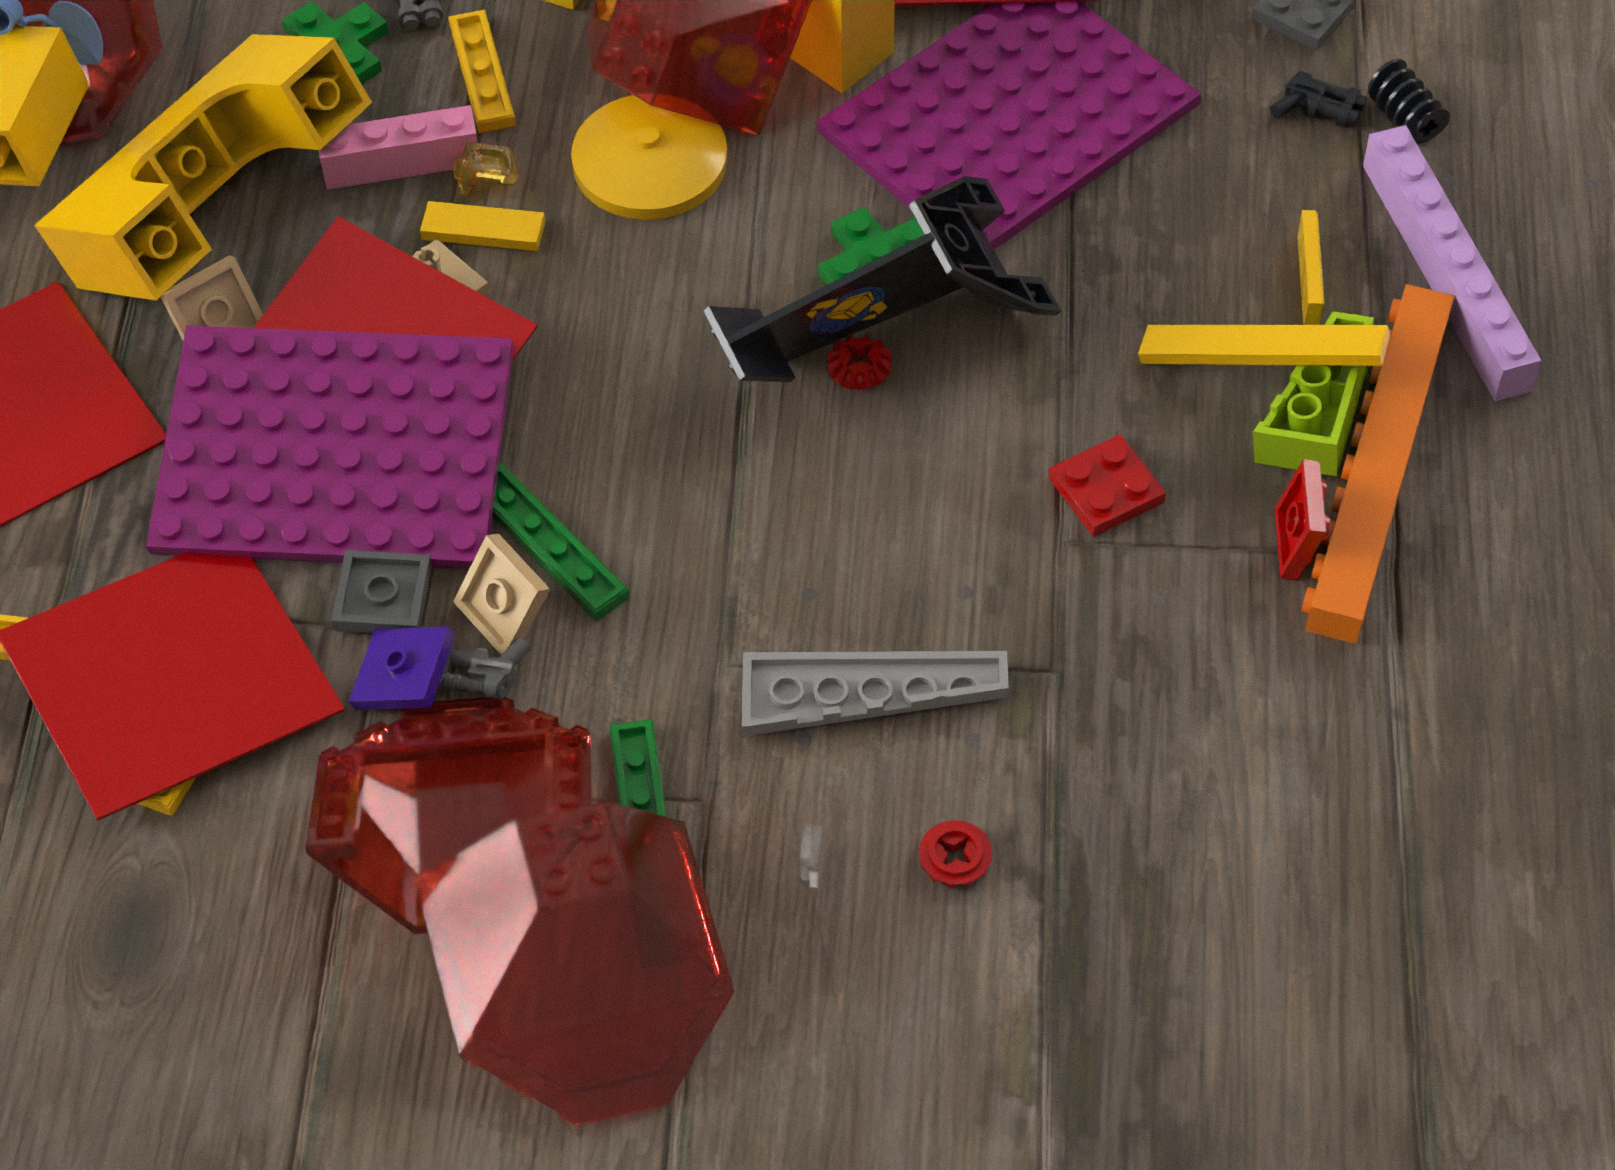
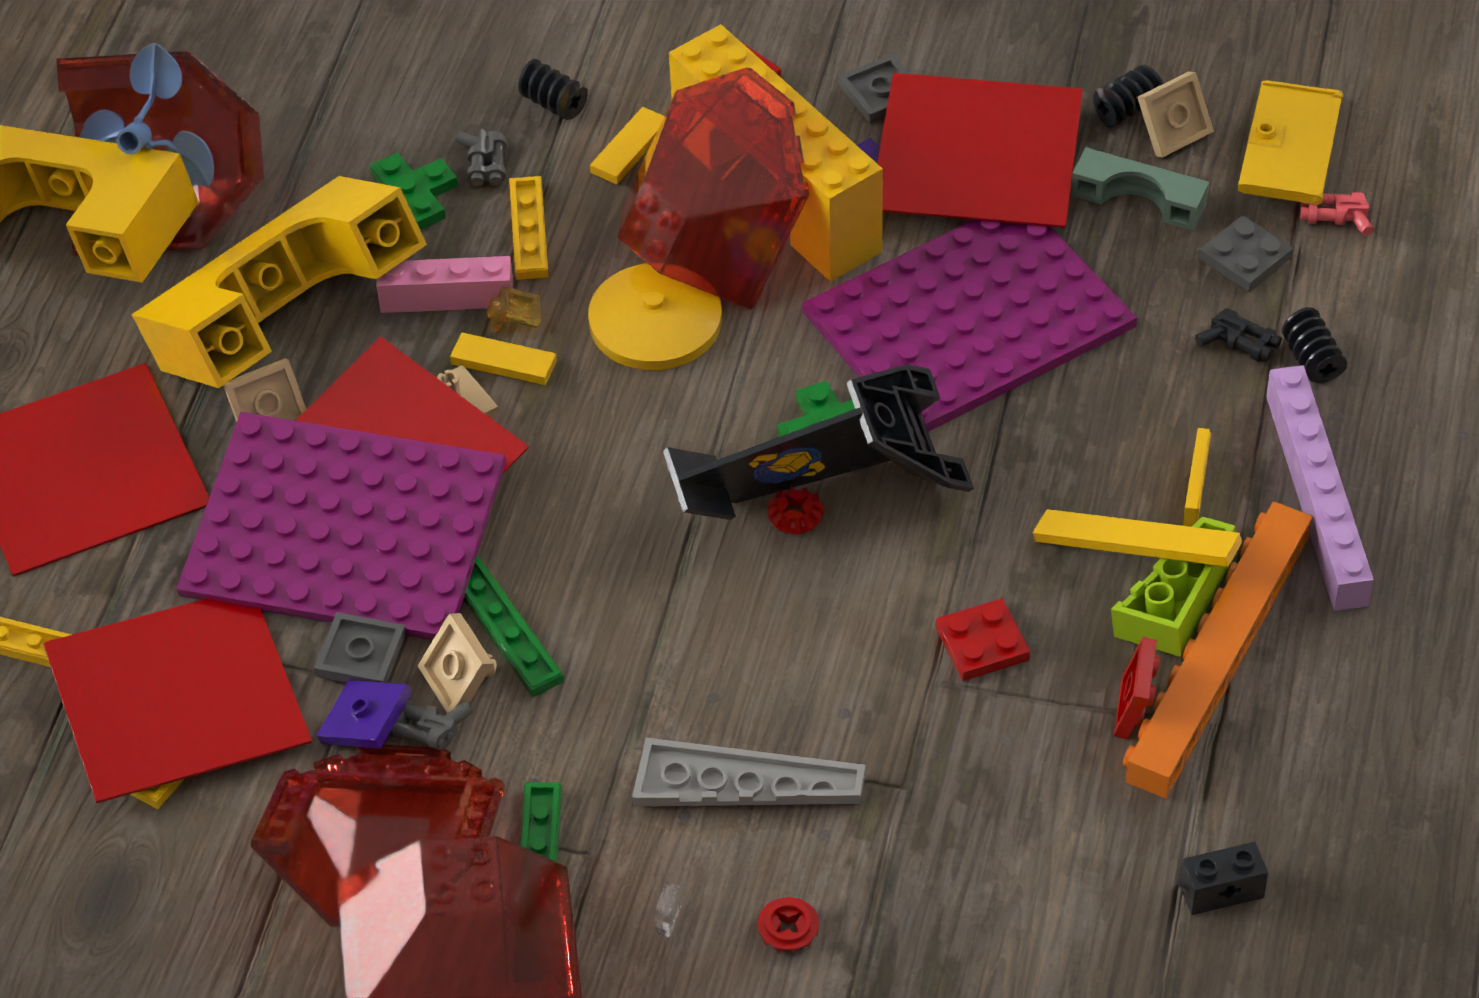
camera: 10 degrees right, 5 degrees down
(1447, 729) = (1223, 878): none -> black brick

